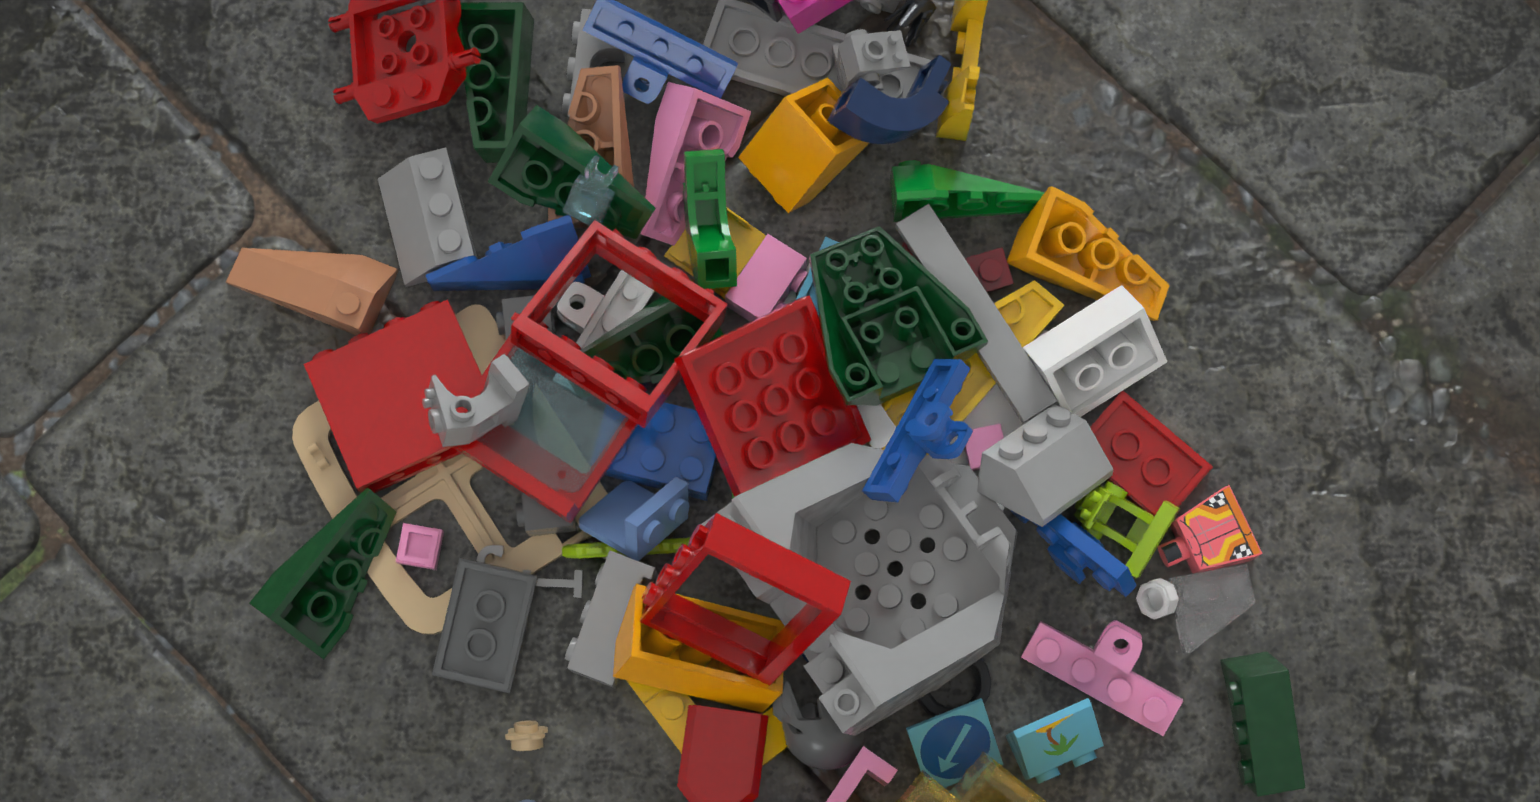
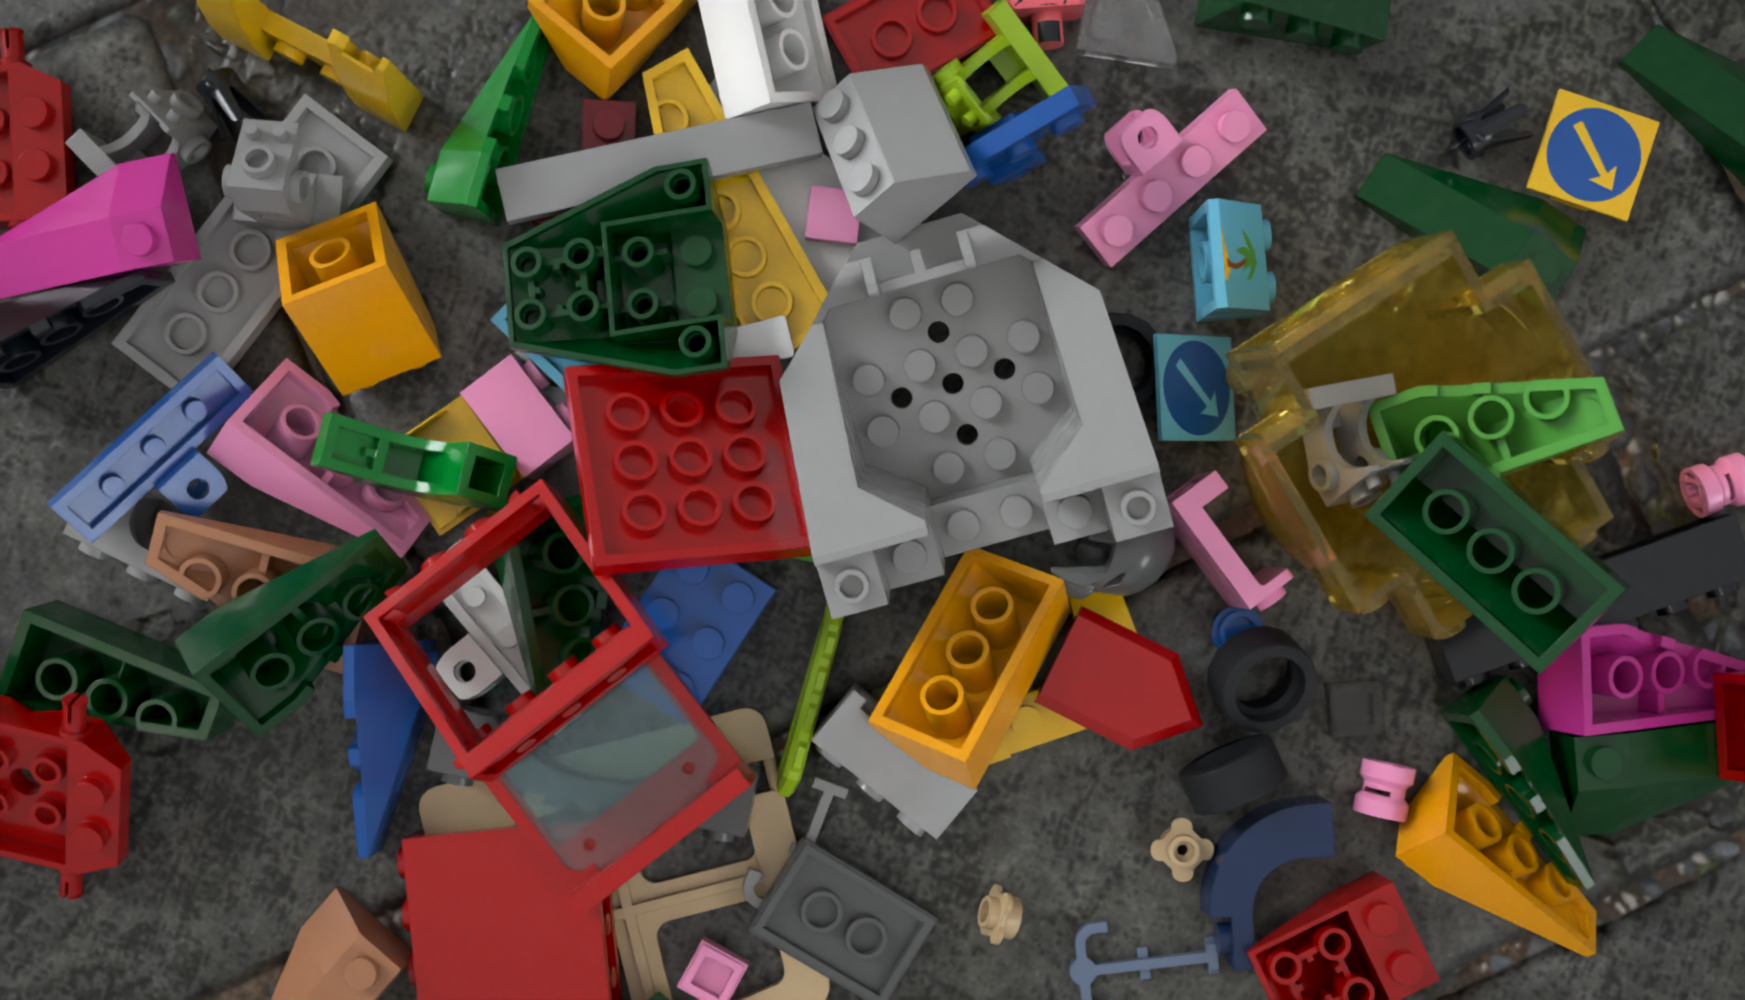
camera: 75 degrees left, 10 degrees up
(426, 214) = (275, 826): light grey slope -> none
(497, 405) = (569, 826): light grey tile -> none
(589, 194) = (325, 611): clear light blue plate -> none
(635, 518) = (774, 689): medium blue bracket -> none
(764, 560) = (977, 497): red window -> none
(883, 119) = (360, 185): dark blue arch -> none
(922, 430) = (794, 284): blue plate -> none
(1157, 598) = (1099, 70): white tile -> none

